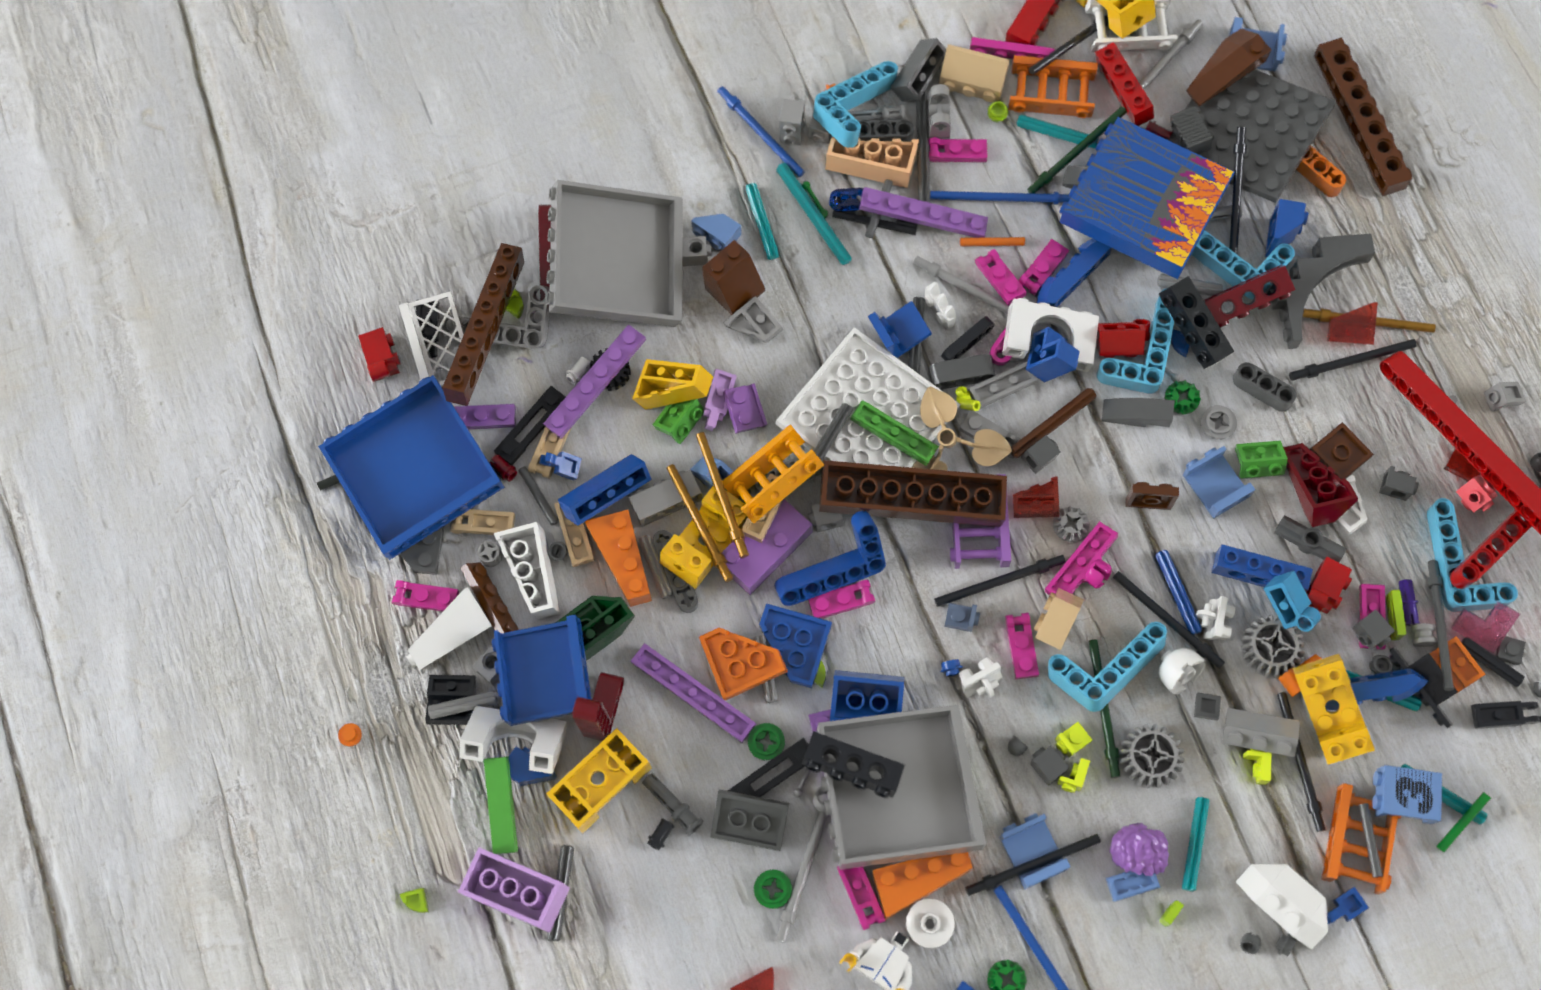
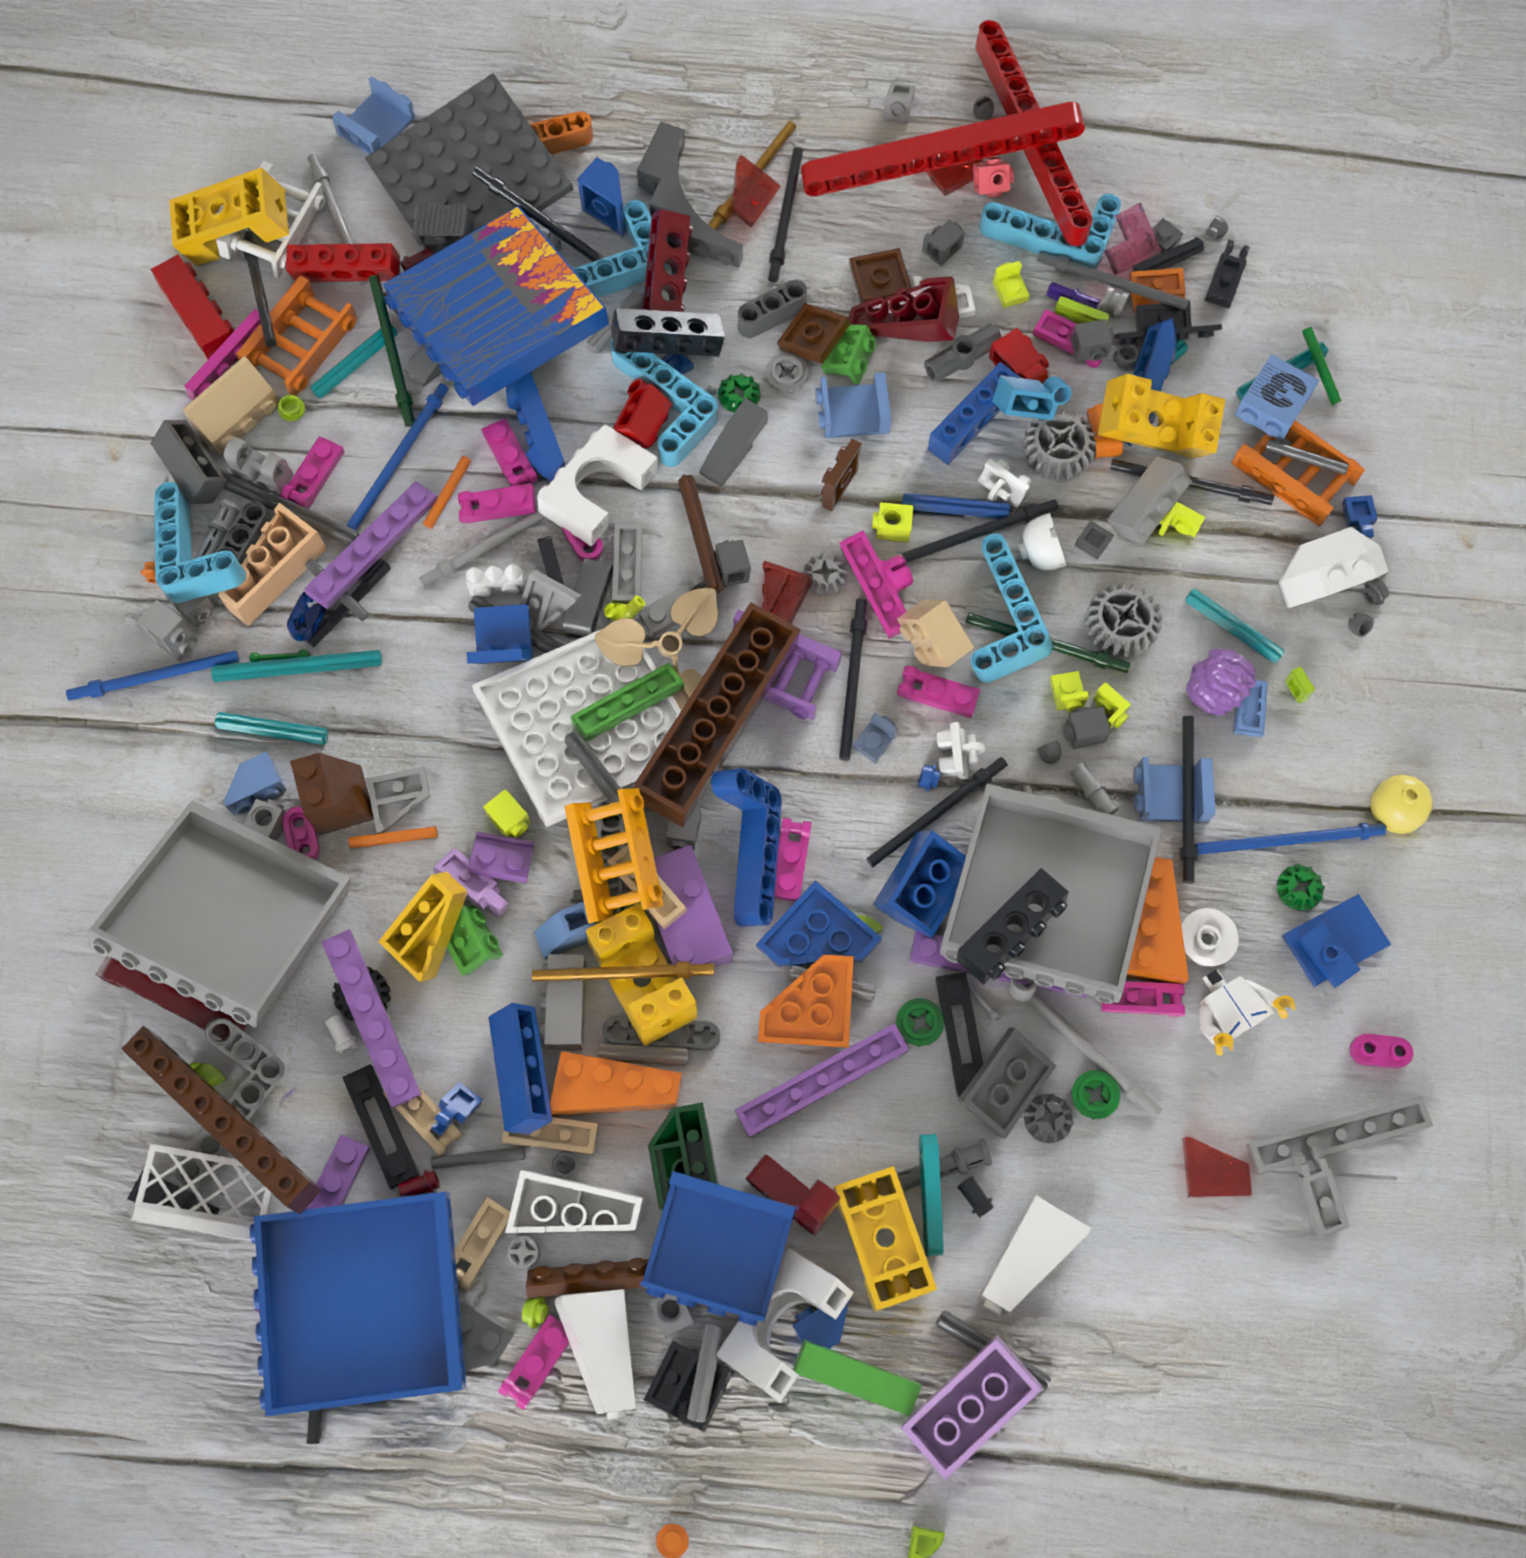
camera: 70 degrees left, 0 degrees up
(379, 354) = (175, 1281): red hinge -> none
(455, 579) = (535, 1311): none -> lime plate
(641, 890) = (1033, 1251): none -> white slope
(645, 800) = (931, 1195): none -> teal beam
(695, 277) = (300, 837): none -> dark pink plate
(726, 334) = (392, 837): none -> orange bar
(736, 534) = (666, 932): pearl gold bar -> none
(740, 874) = (1043, 1131): none -> dark grey gear
(776, 397) = (507, 814): none -> neon yellow brick
(942, 343) = (546, 599): none -> light grey wing
(969, 705) = (979, 779): none -> black bar
(1002, 791) = (1093, 790): none -> light grey pin
(1051, 355) = (625, 493): blue brick -> none
(1134, 561) = (901, 514): none -> neon yellow brick
(1229, 63) = (383, 144): reddish brown wedge -> none
(1260, 425) = (813, 333): none -> reddish brown plate
(1360, 126) = (520, 63): reddish brown brick -> none
(1392, 550) = (1010, 284): none -> neon yellow bracket

